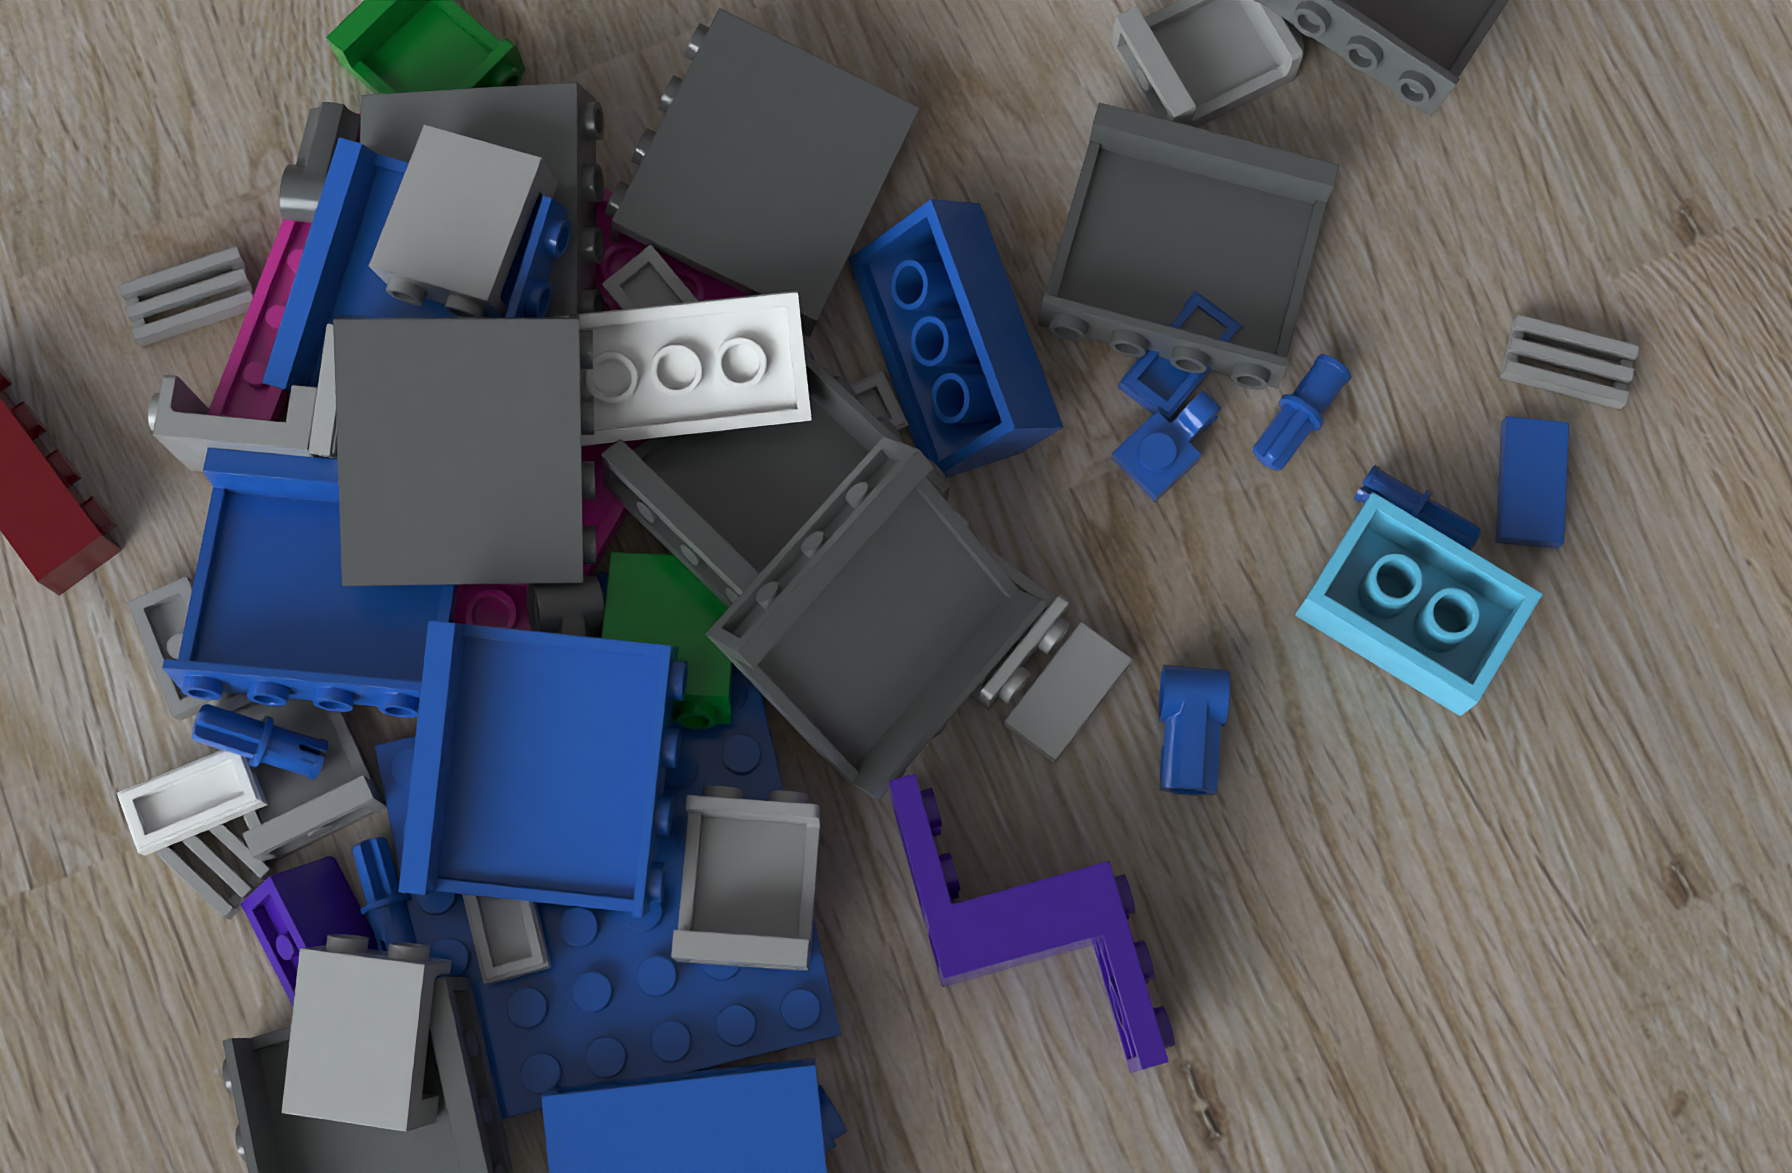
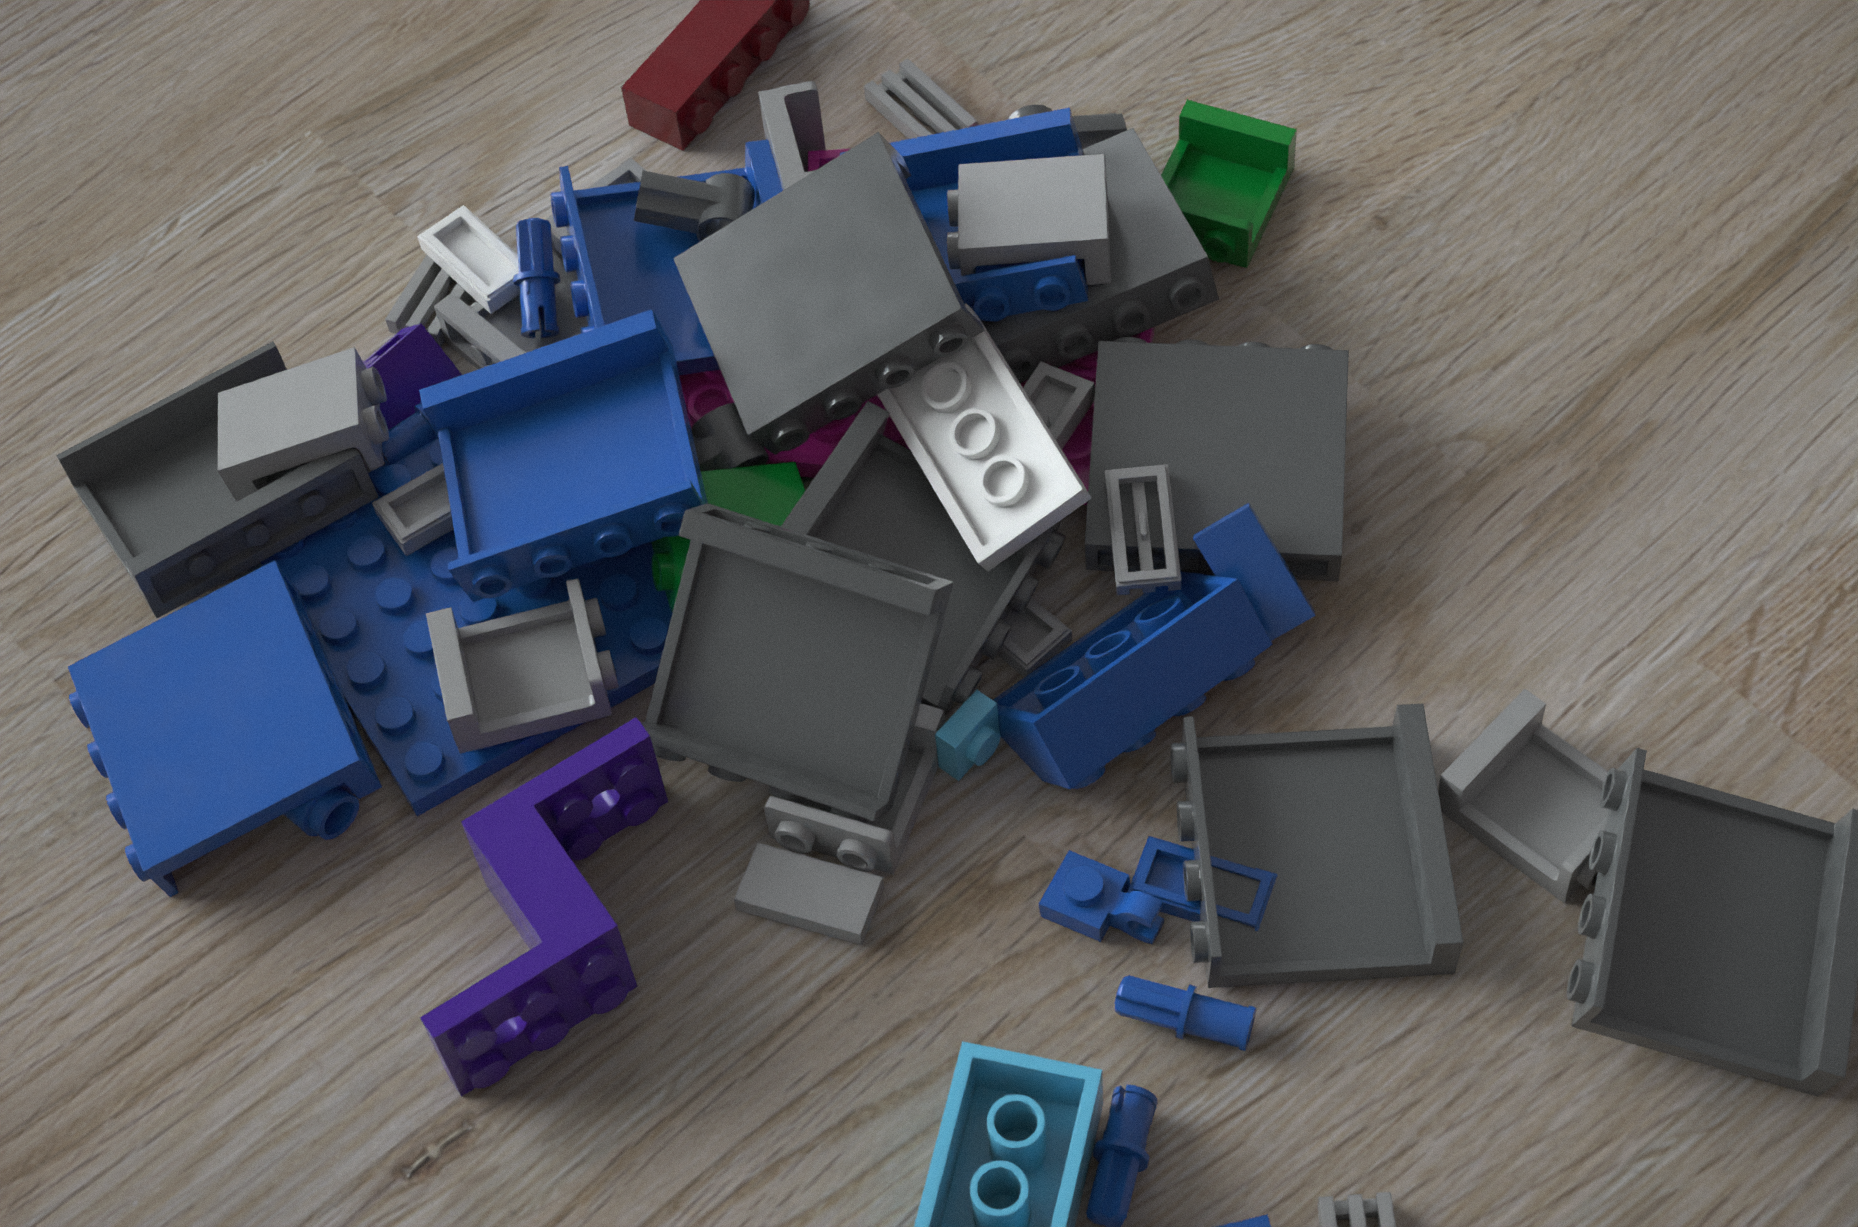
camera: 75 degrees right, 20 degrees down
(268, 534) = (693, 204): none -> dark grey piece
(821, 284) = (1147, 577): none -> light grey tile
(898, 186) = (1244, 551): none -> blue tile
(970, 495) = (968, 736): none -> medium azure plate
(1193, 711) = (826, 1004): blue piece -> none

